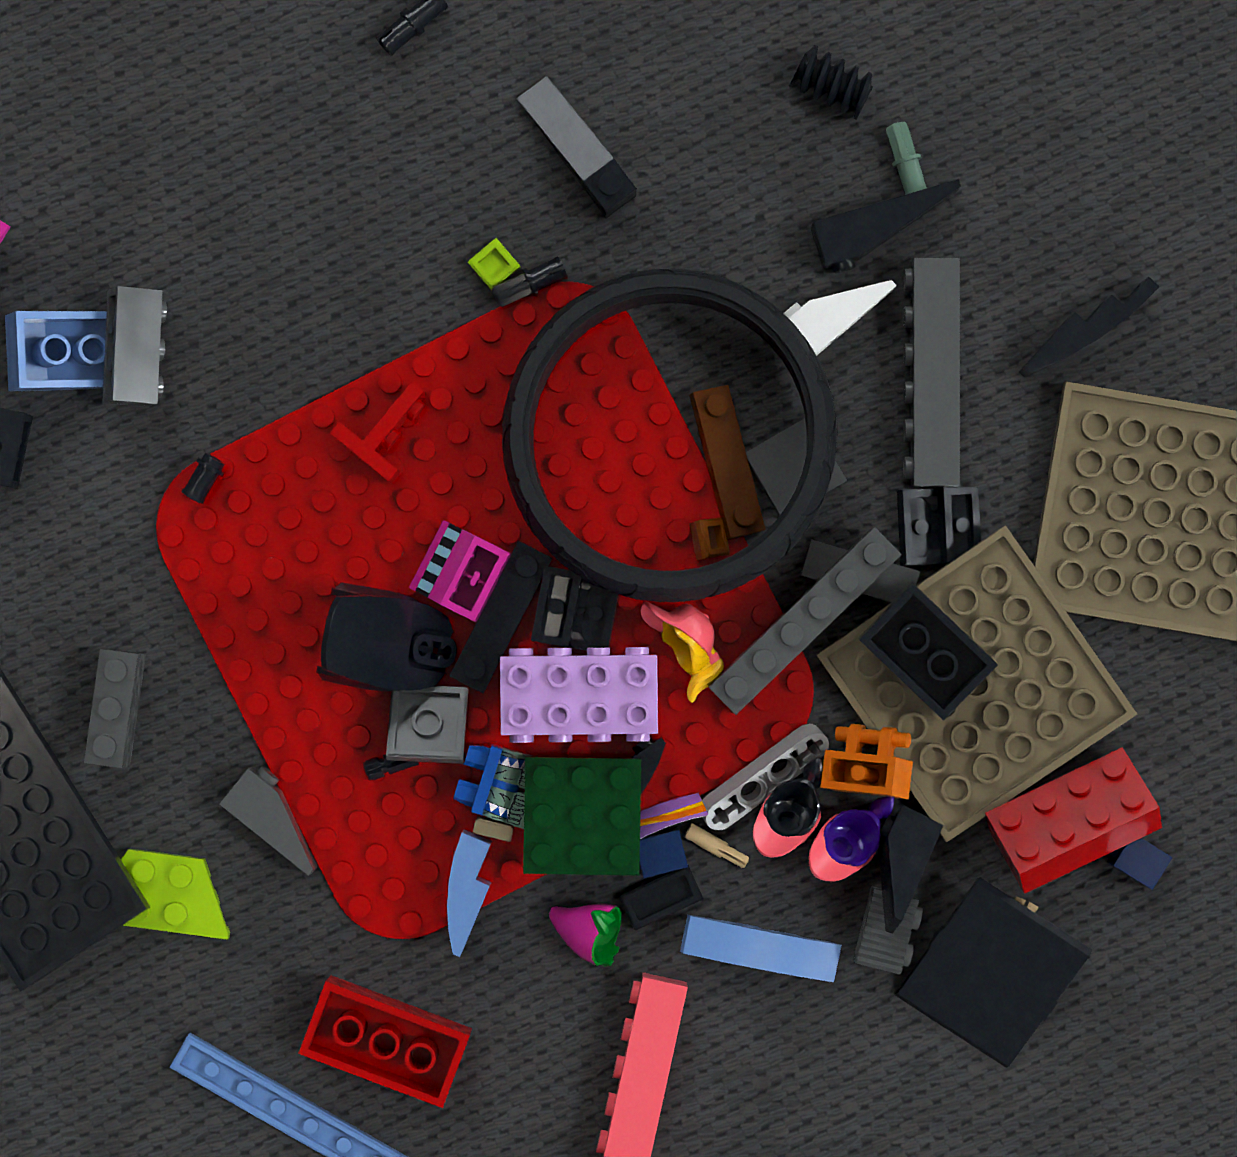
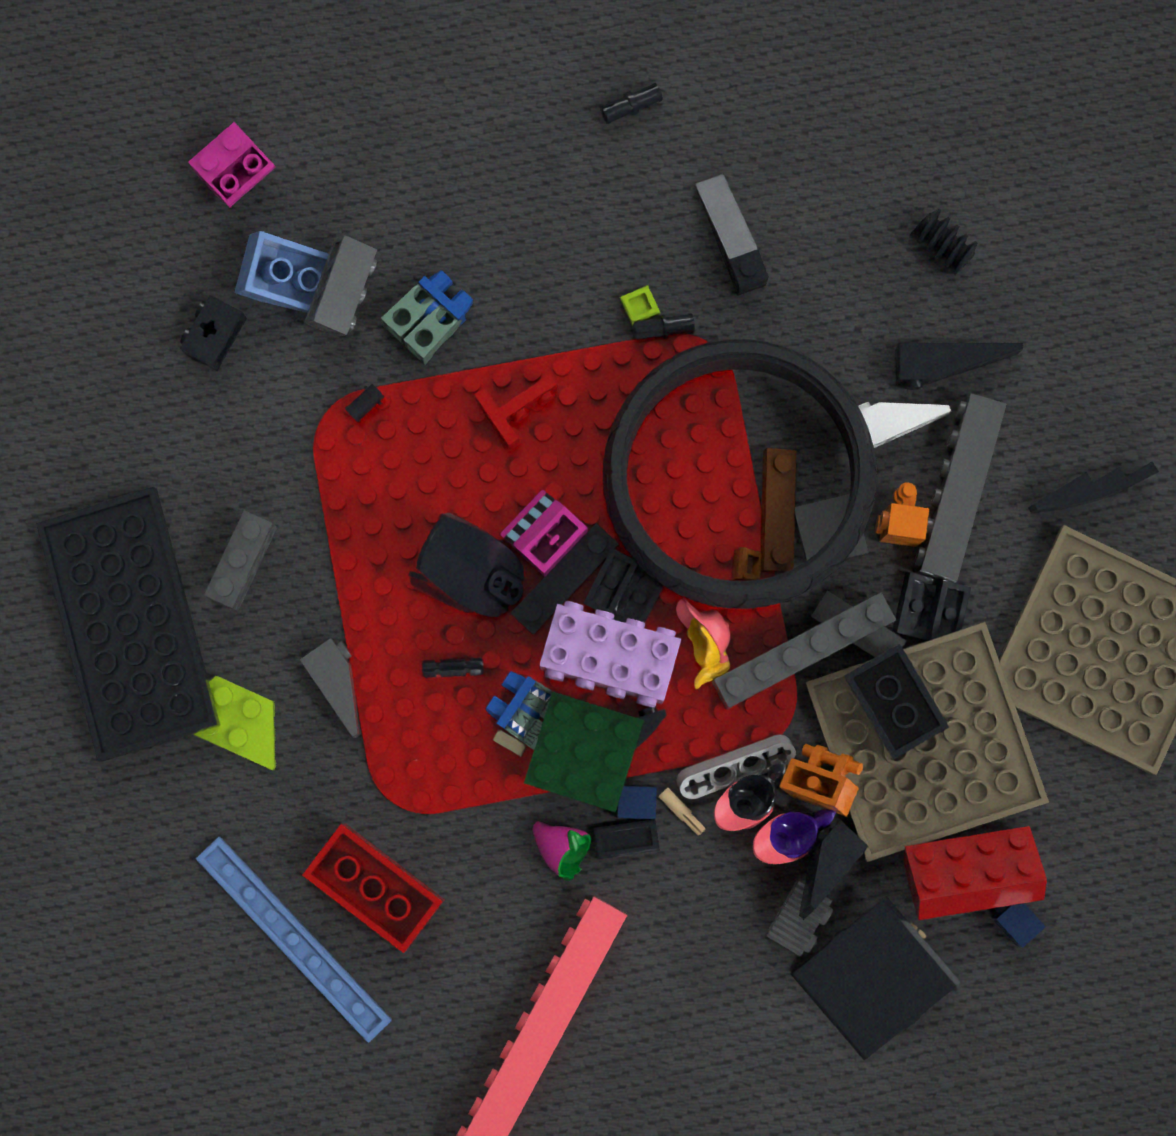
camera: 20 degrees right, 5 degrees down
(245, 352) = (427, 316): none -> sand green hips
(428, 725) = (482, 645): dark grey tile -> none
(465, 888) = (473, 785): medium blue slope -> none
(671, 813) = (654, 773): medium lavender sticker -> none
(760, 948) = (694, 903): medium blue slope -> none
(878, 434) = (903, 521): none -> orange brick
(905, 157) = (985, 315): sand green axle -> none

